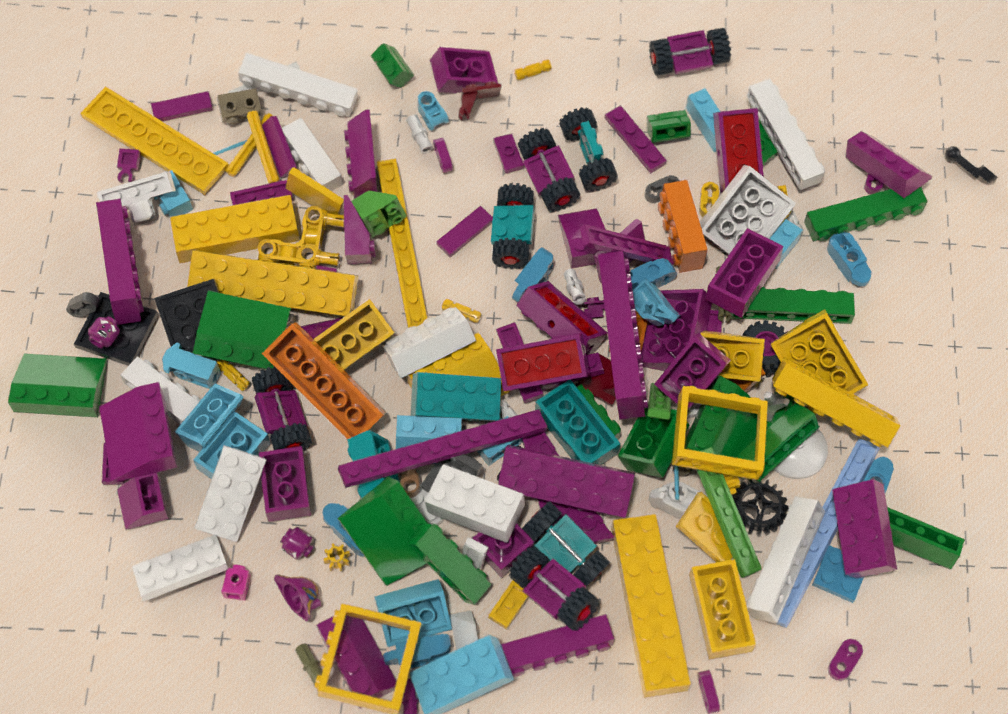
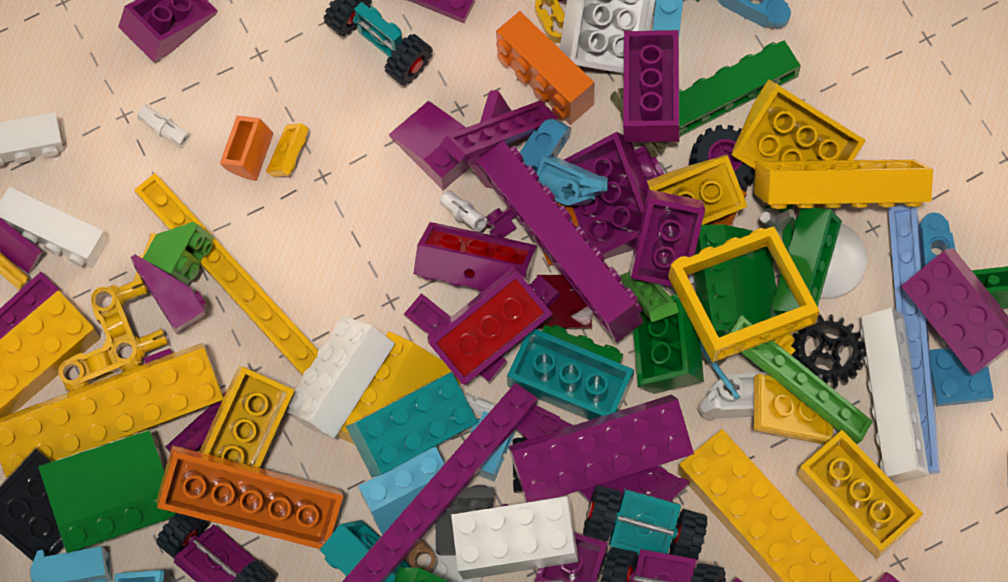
camera: 25 degrees left, 5 degrees up
(233, 374) = (128, 548): yellow axle -> none
(313, 192) = (86, 271): yellow tile -> none
(360, 154) = (113, 193): magenta slope -> none
(392, 65) = (77, 59): green brick -> none
(433, 112) = (163, 93): medium azure piece -> none
(442, 155) = (207, 136): magenta beam -> none
(462, 174) = (246, 147): none -> orange brick
(465, 231) = (292, 215): magenta tile -> none
(473, 92) = (197, 49): dark red plate -> none
(474, 316) = (367, 313): yellow axle -> none
(483, 192) = (287, 150): none -> yellow plate
(508, 153) = (284, 91): magenta plate -> none
(512, 226) = (347, 178): plate -> none
(535, 272) = (407, 222): dark azure piece -> none
(548, 169) = (346, 86): plate -> none
(657, 186) = (485, 32): dark grey beam -> none

